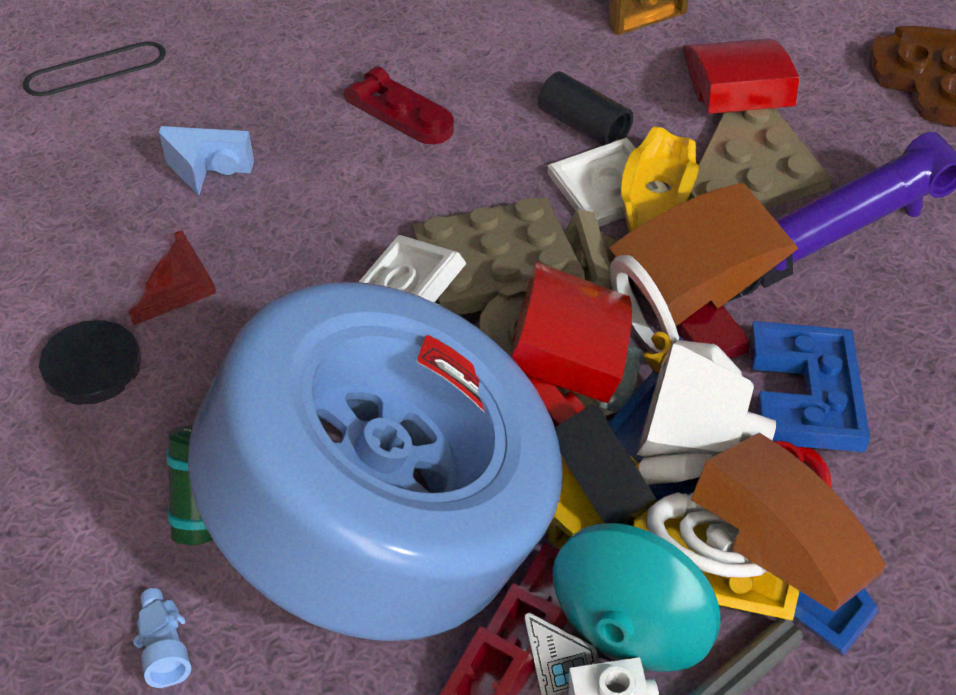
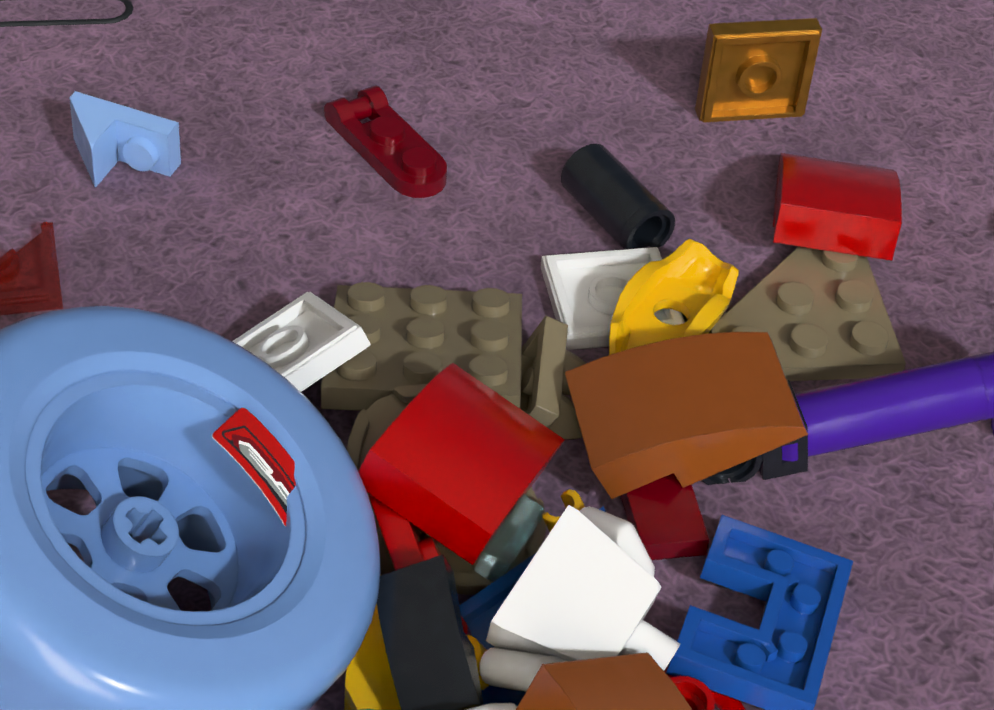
camera: 10 degrees right, 5 degrees down
(626, 266) = (576, 455): white piece -> none

